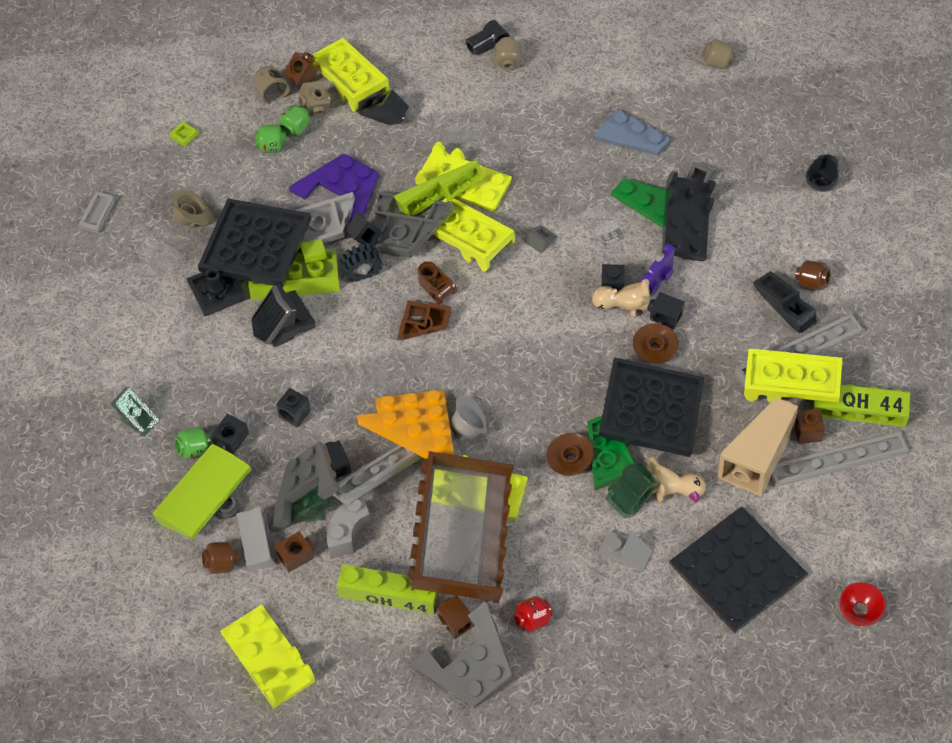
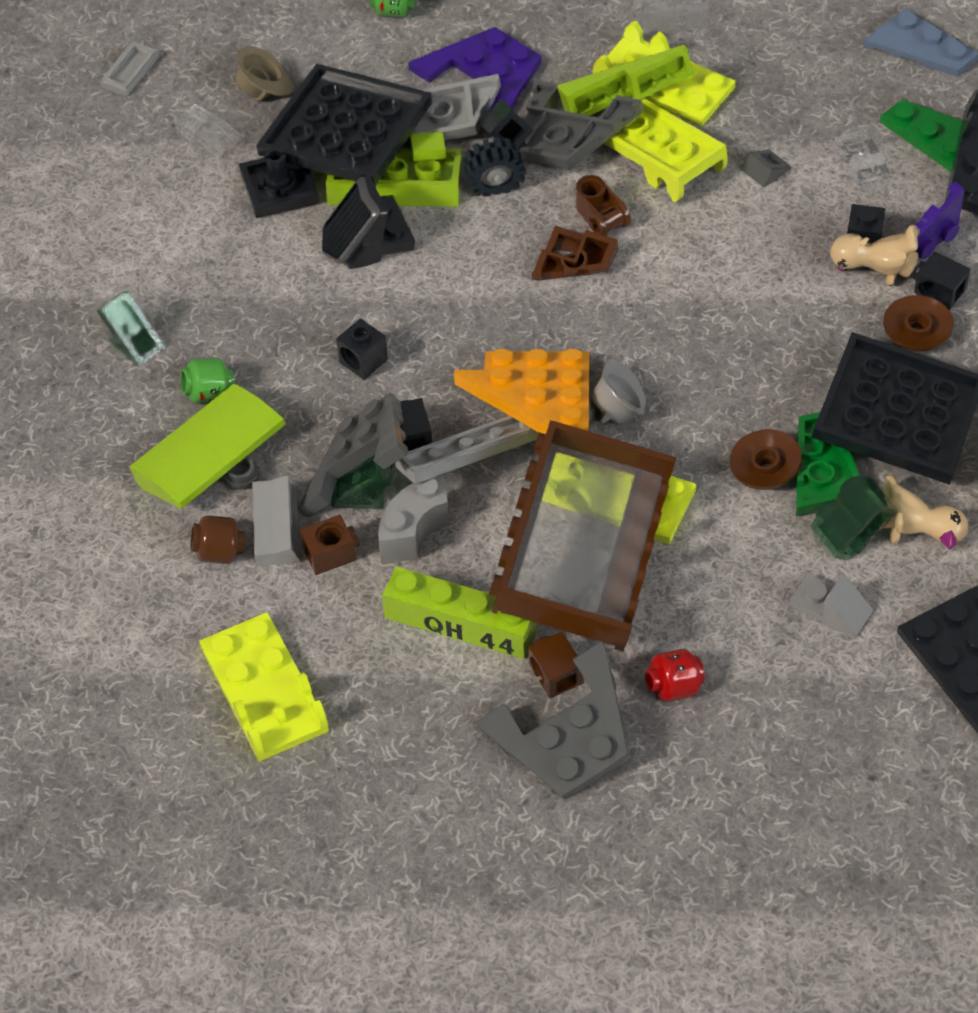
camera: 10 degrees right, 5 degrees down
(230, 426) = (264, 373): black brick -> none

